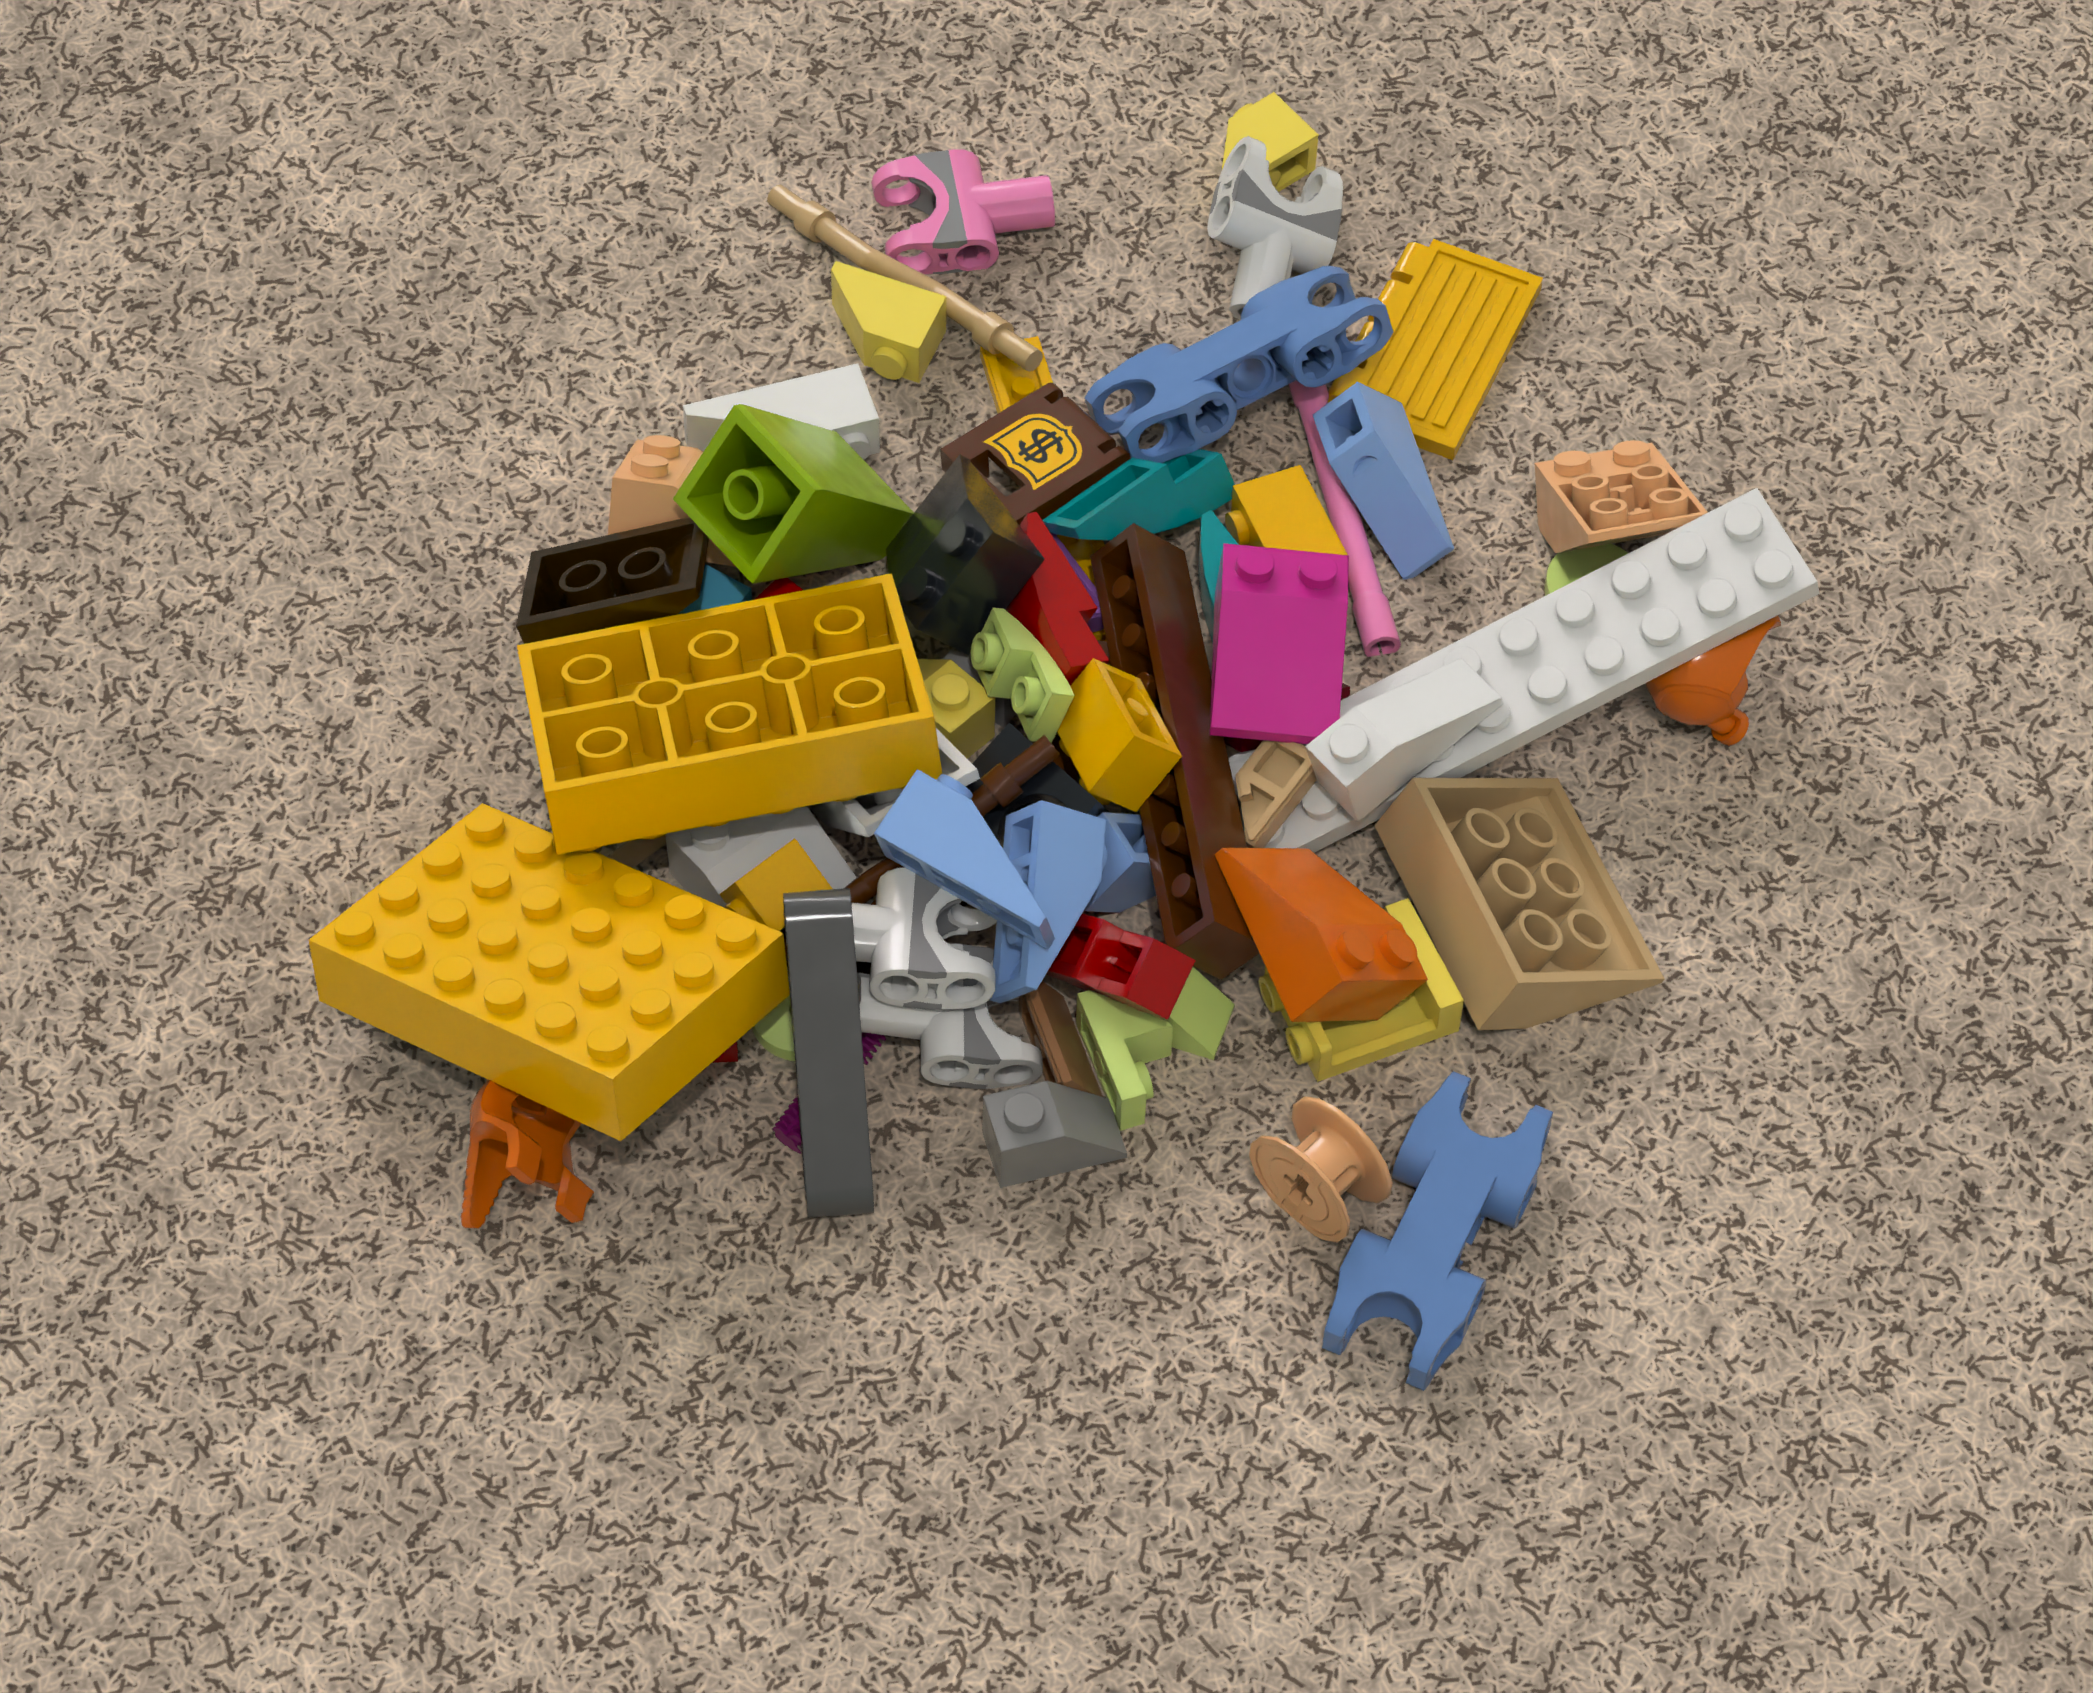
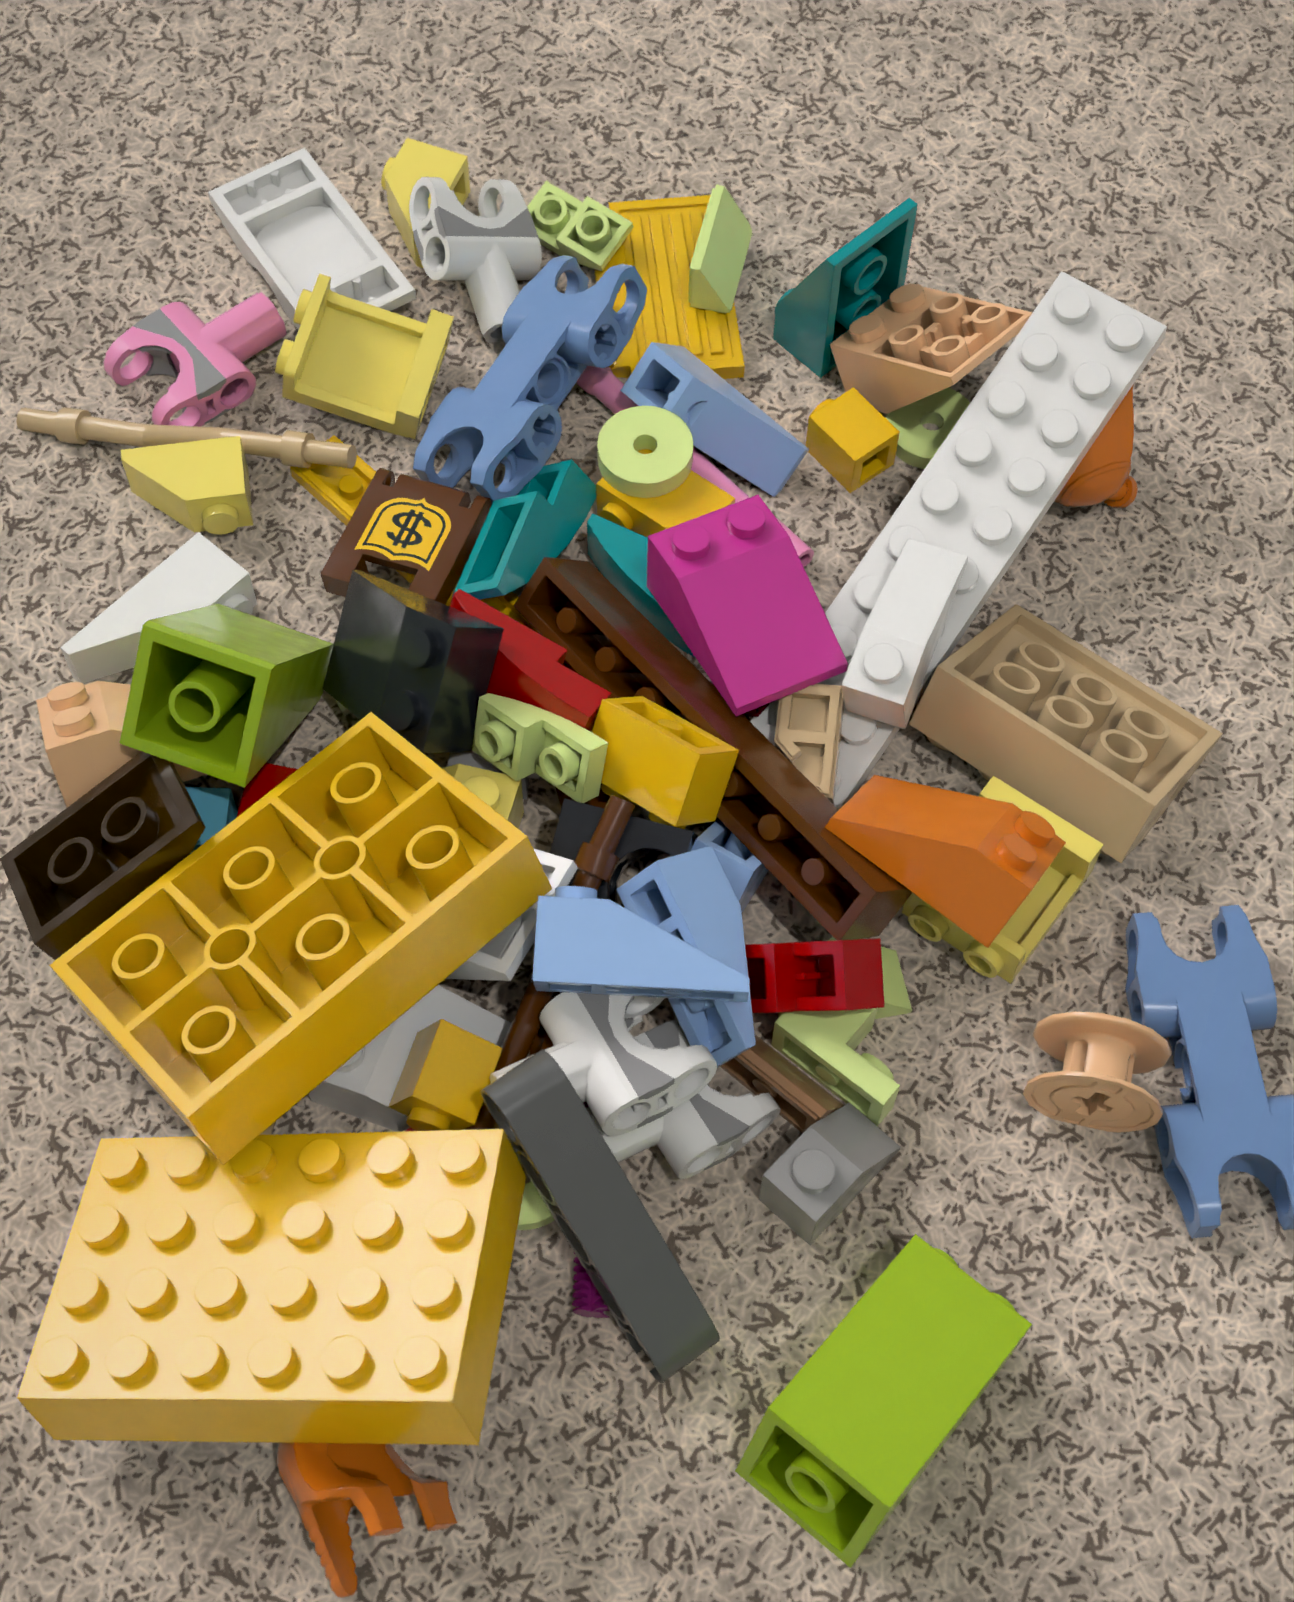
camera: 30 degrees left, 5 degrees up
(970, 1309) = (880, 1398): none -> lime slope
(1101, 279) = (363, 360): none -> light yellow panel
(1125, 154) = (299, 225): none -> white slope
(1288, 499) = (645, 473): none -> yellowish green piece
(1382, 246) = (577, 227): none -> yellowish green slope
(1496, 332) = (719, 254): none -> yellowish green slope
(1503, 560) = (851, 439): none -> yellow brick
(1582, 412) = (845, 289): none -> teal slope

